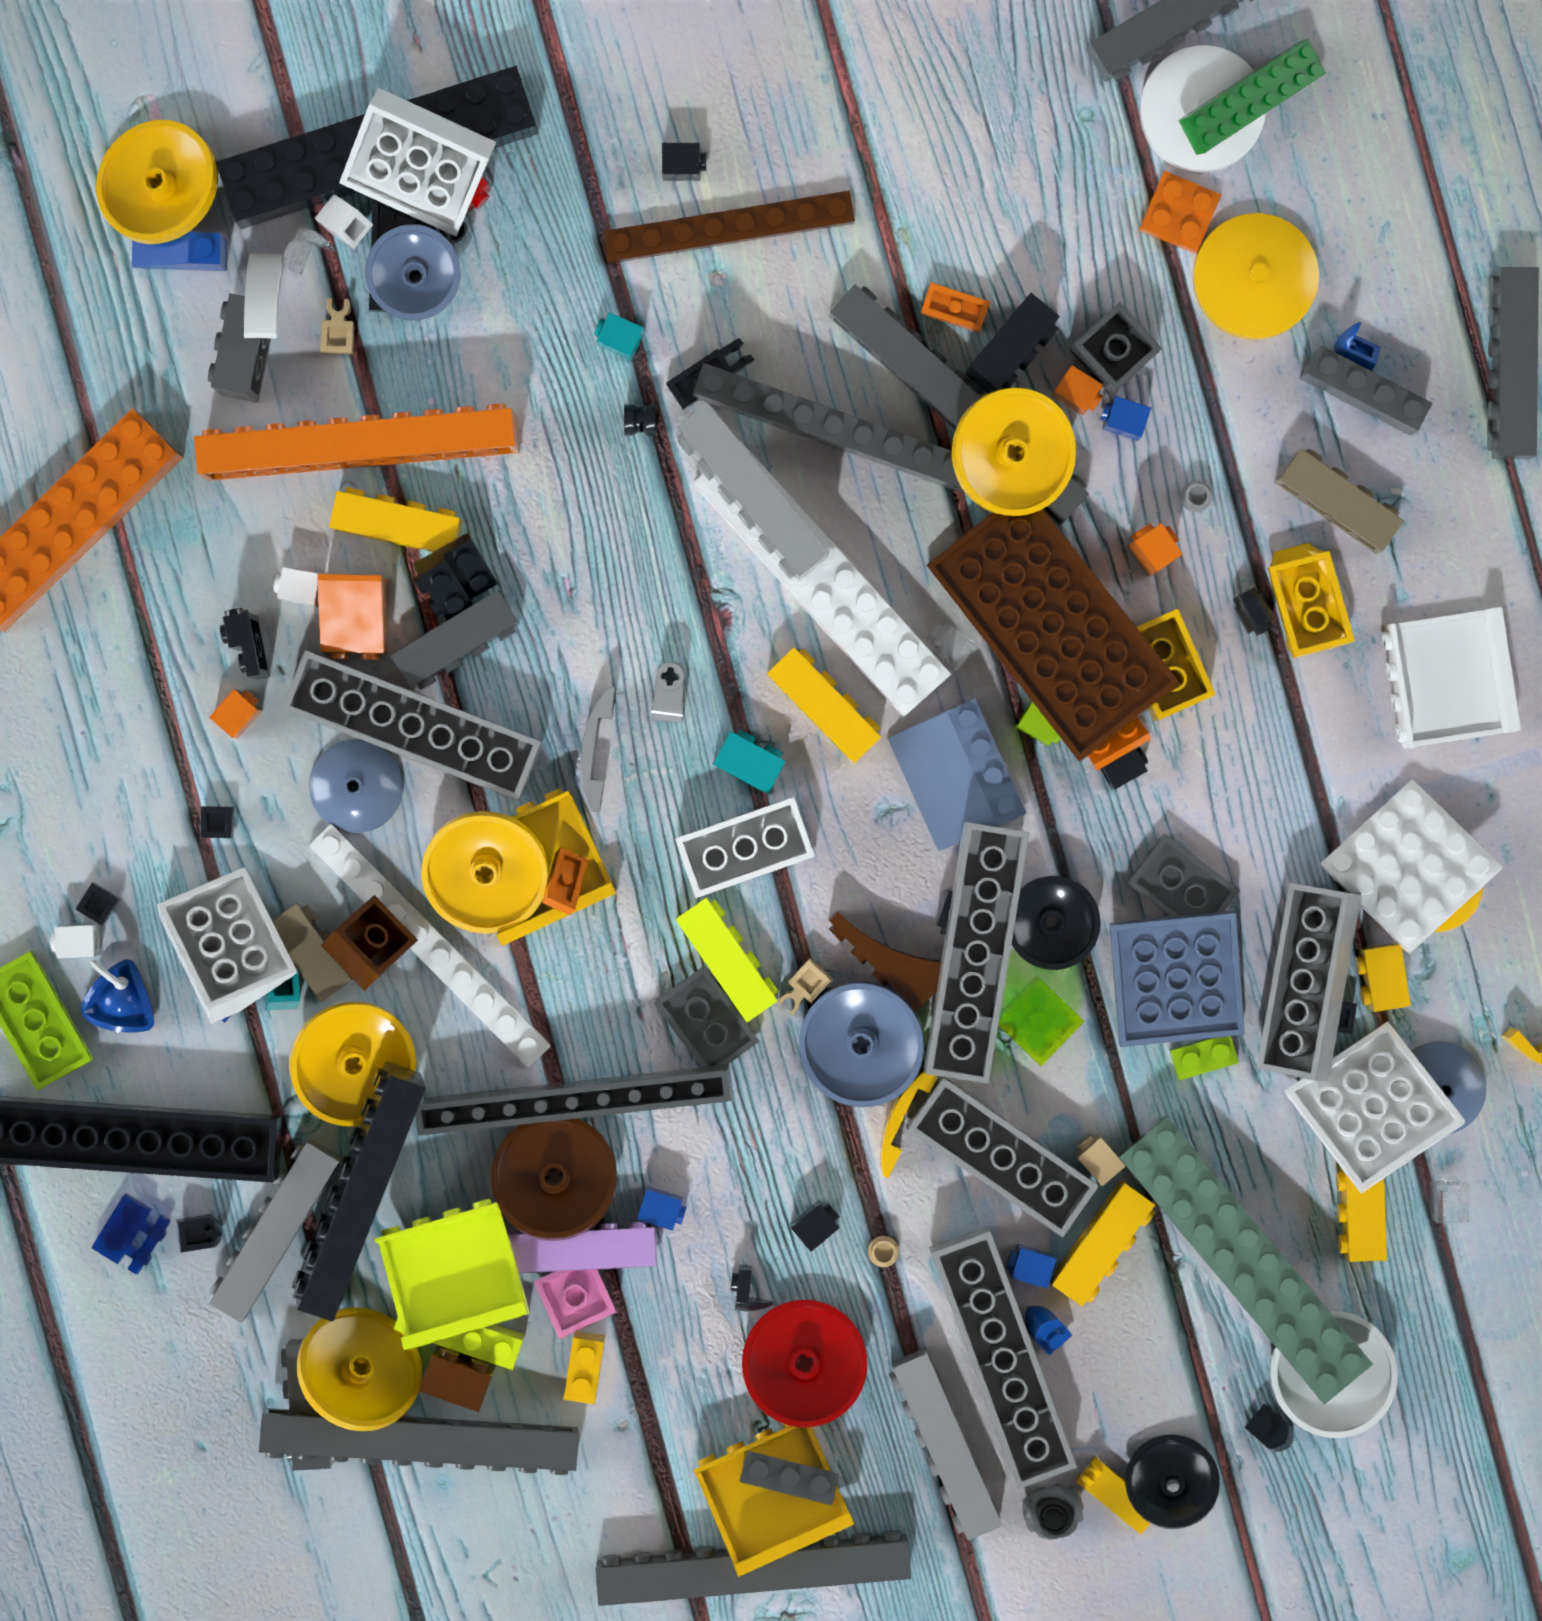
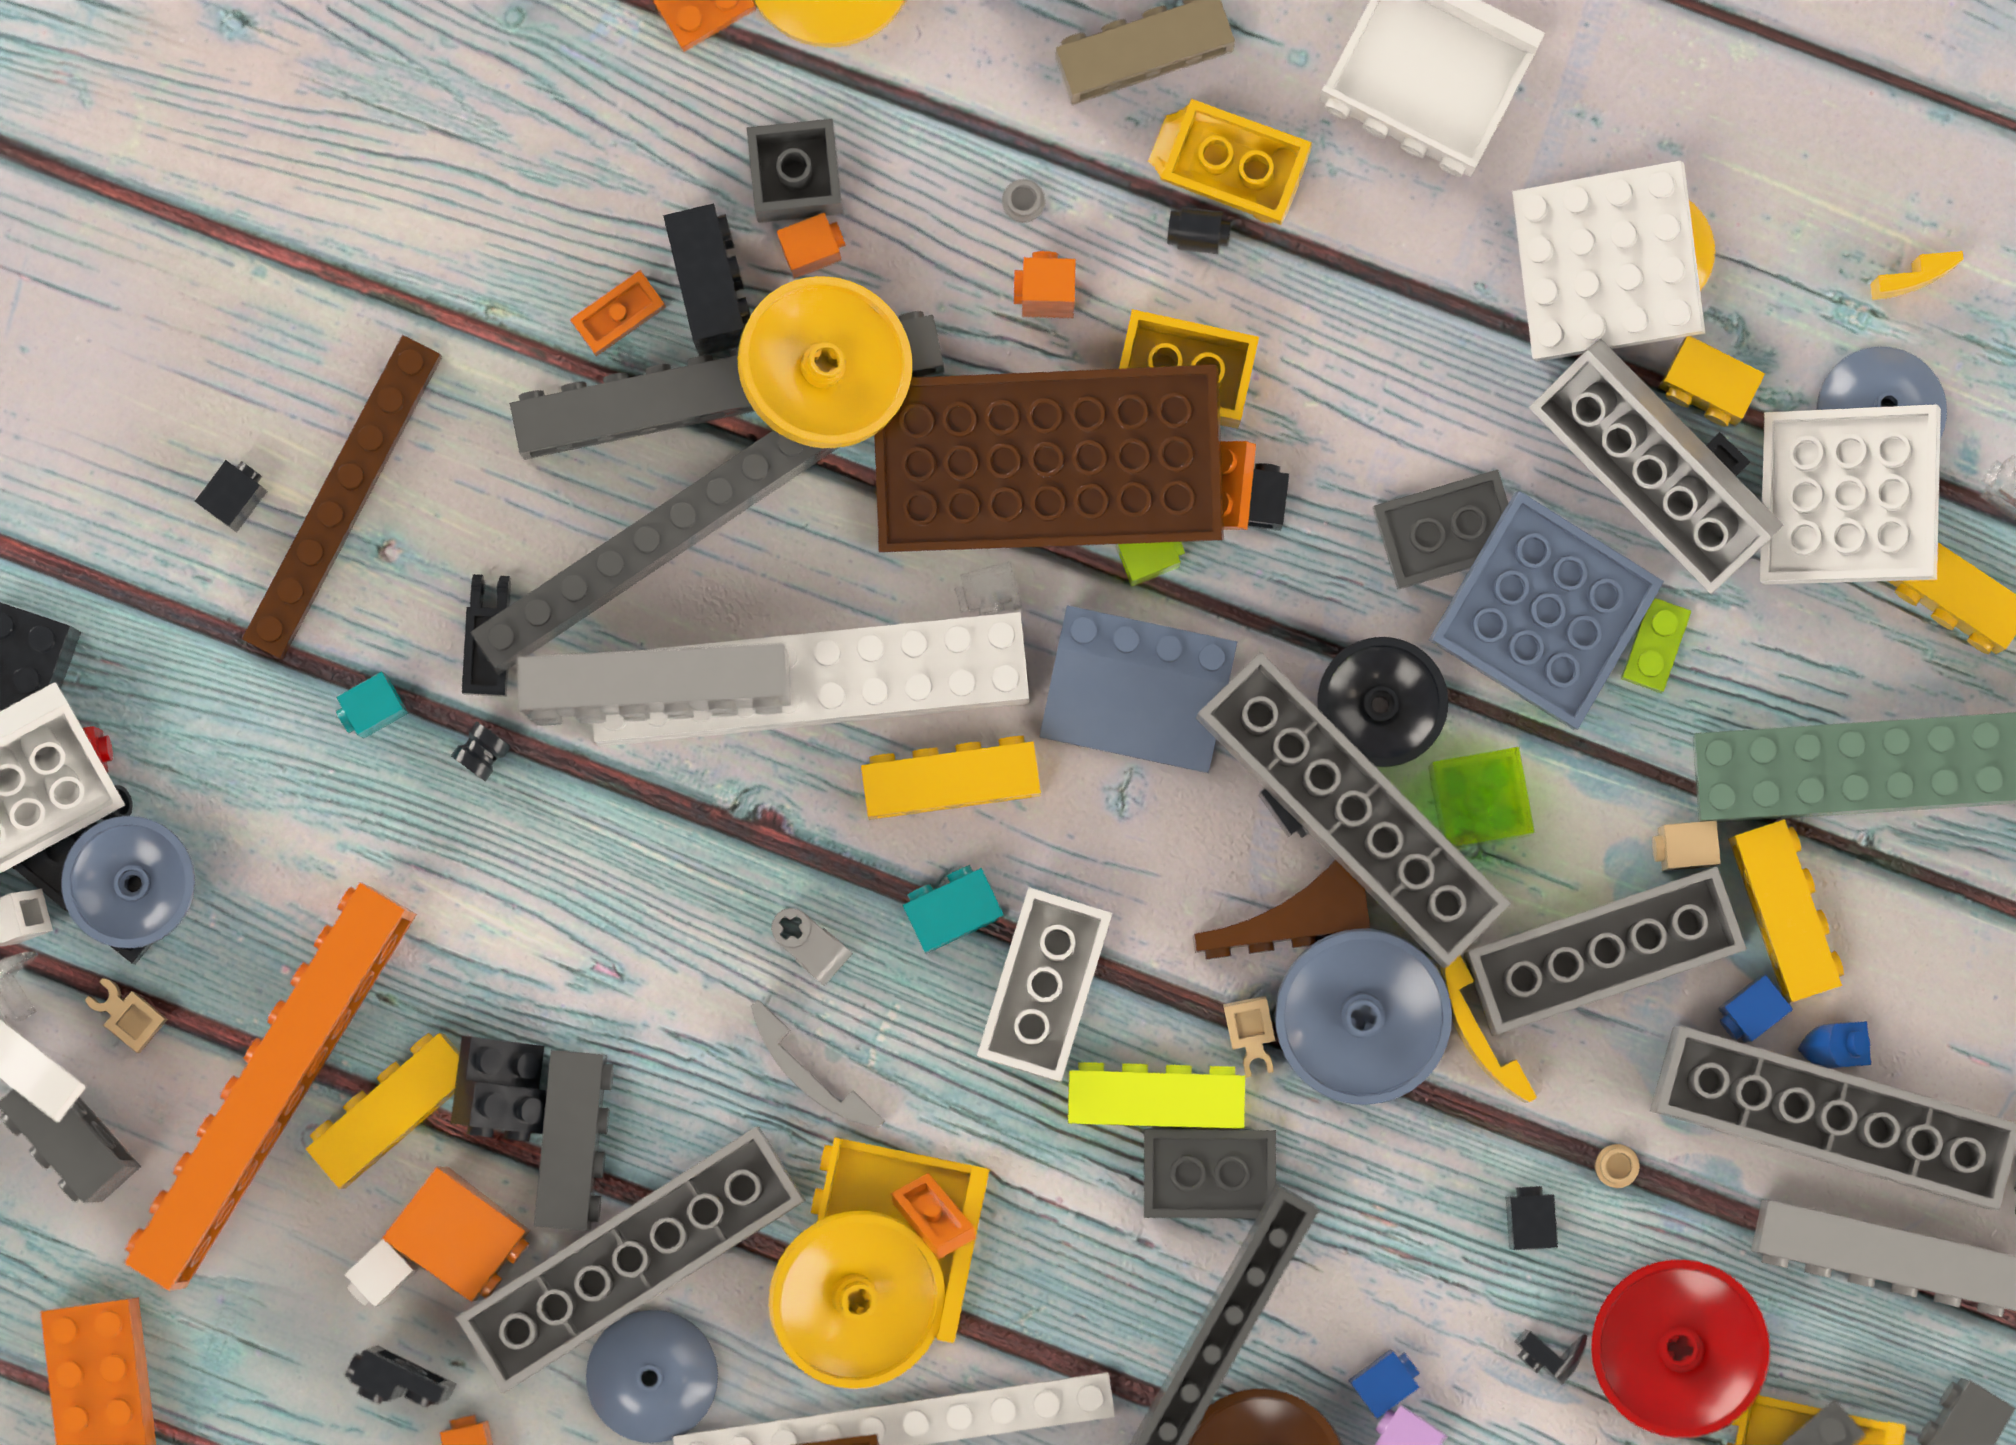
camera: 50 degrees left, 5 degrees down
(1125, 418) = (879, 215): blue brick -> none

